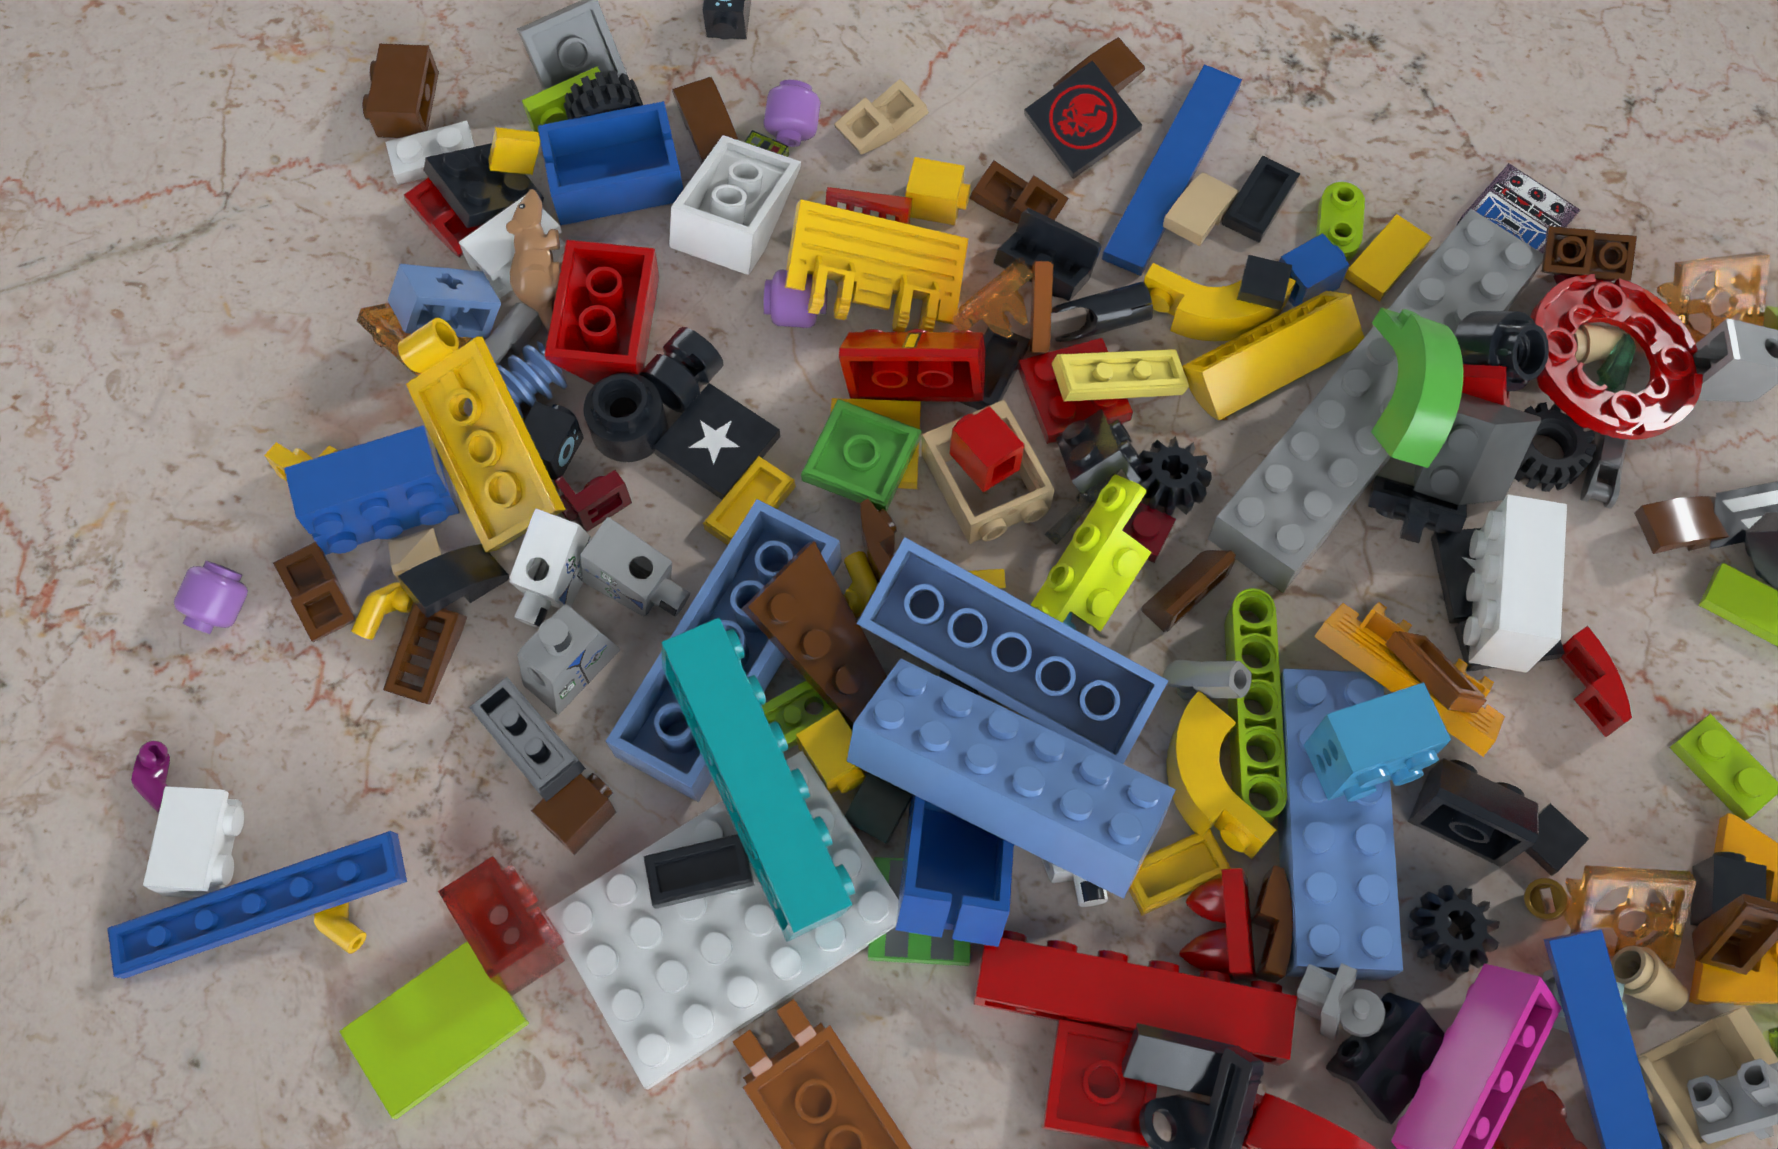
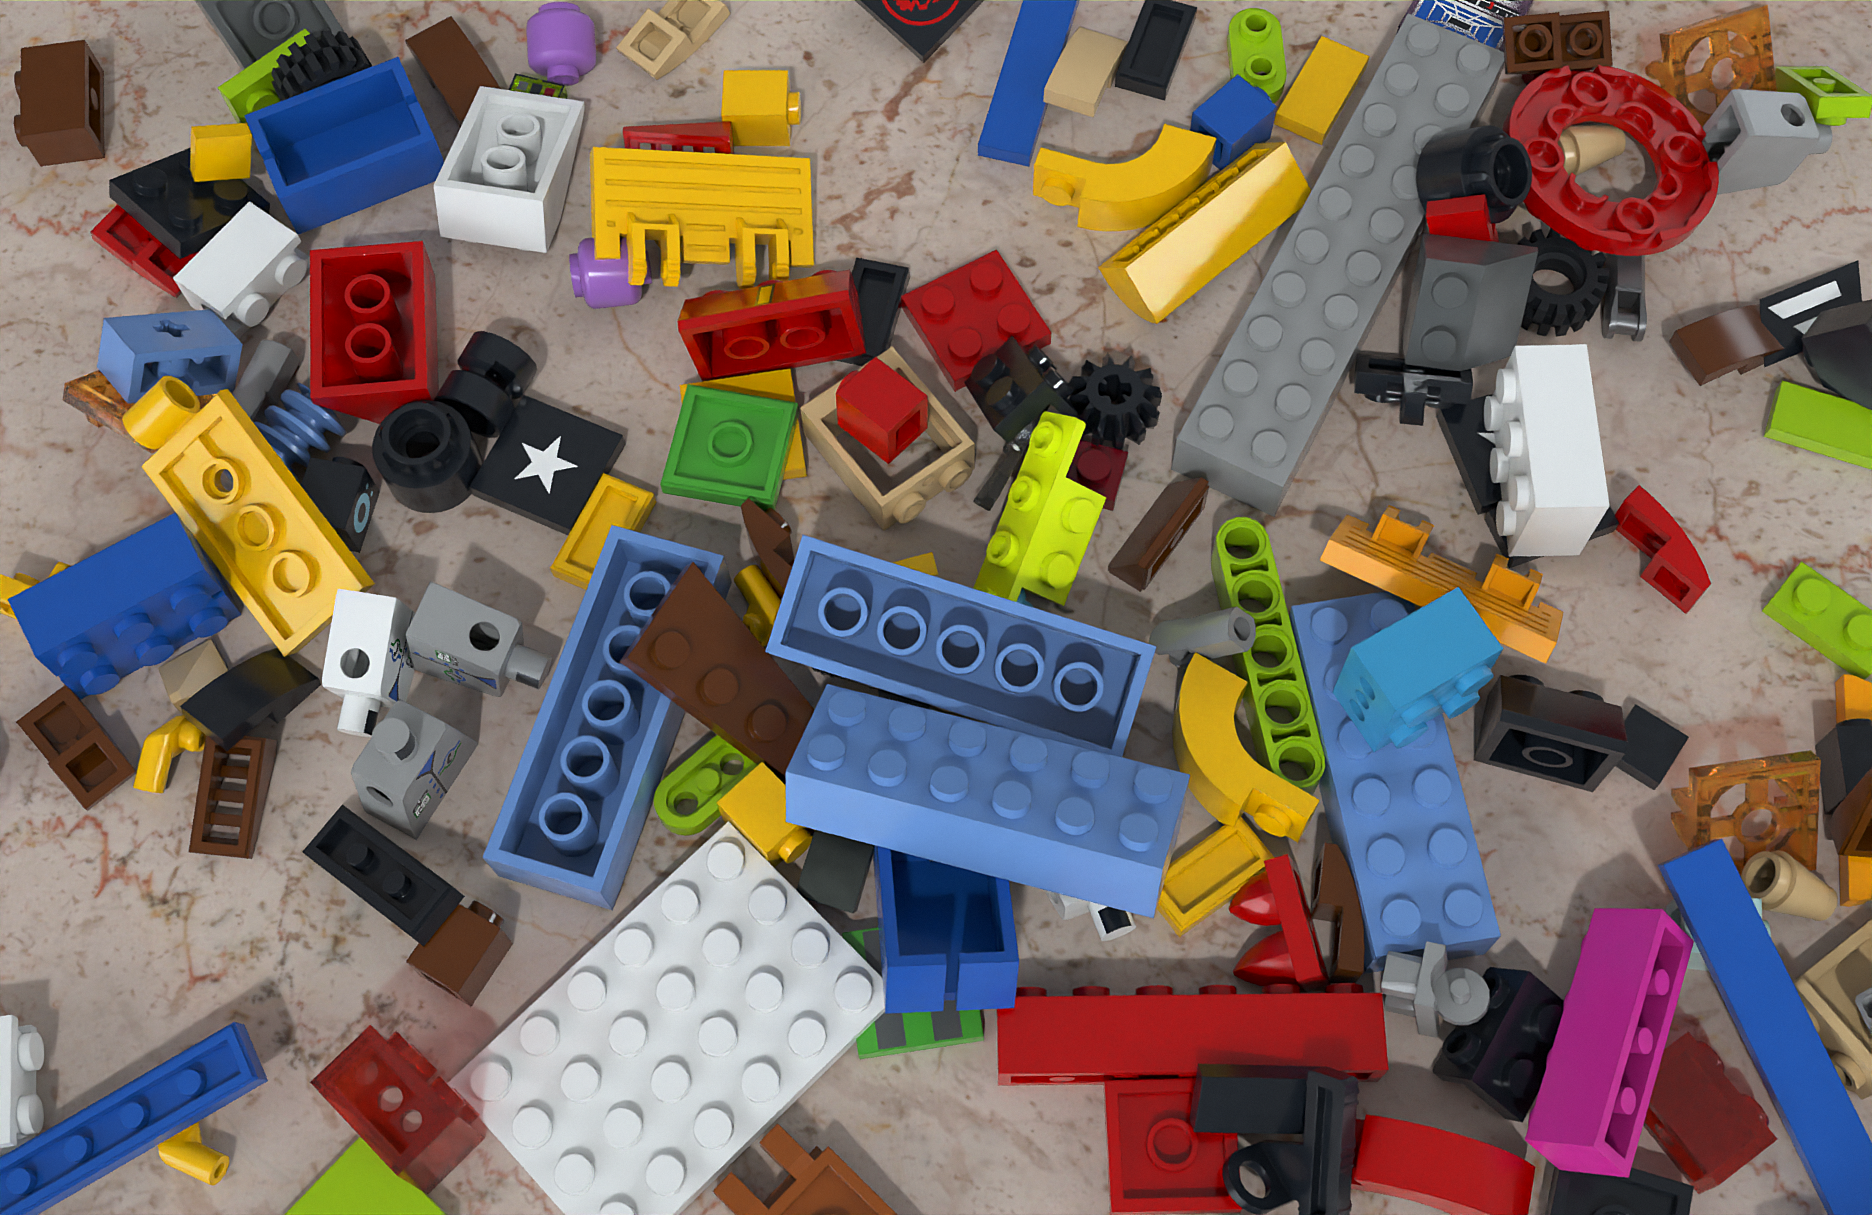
camera: 10 degrees left, 0 degrees up
(409, 152) = (87, 178): white plate -> none
(532, 270) = (274, 295): medium nougat animal -> none
(597, 501) = (411, 567): dark red bracket -> none
(697, 871) = (629, 992): black tile -> none
(755, 780) = (677, 864): teal brick -> none
(994, 299) = (857, 226): clear orange piece -> none
(1010, 194) = (862, 102): reddish brown slope -> none
(1041, 306) = (915, 225): dark orange tile -> none
(1048, 240) = (912, 161): black bracket -> none
(1109, 310) = (999, 215): black piece -> none
(1119, 375) = (1026, 291): light yellow tile -> none
(1264, 282) = (1179, 146): black tile -> none
(1425, 389) = (1396, 237): bright green arch -> none
(1436, 671) = (1472, 573): dark orange tile -> none
(1468, 944) = (1573, 889): black gear -> none
(1535, 902) = (1641, 825): pearl gold hinge -> none
(1617, 365) = (1616, 169): clear green bar -> none

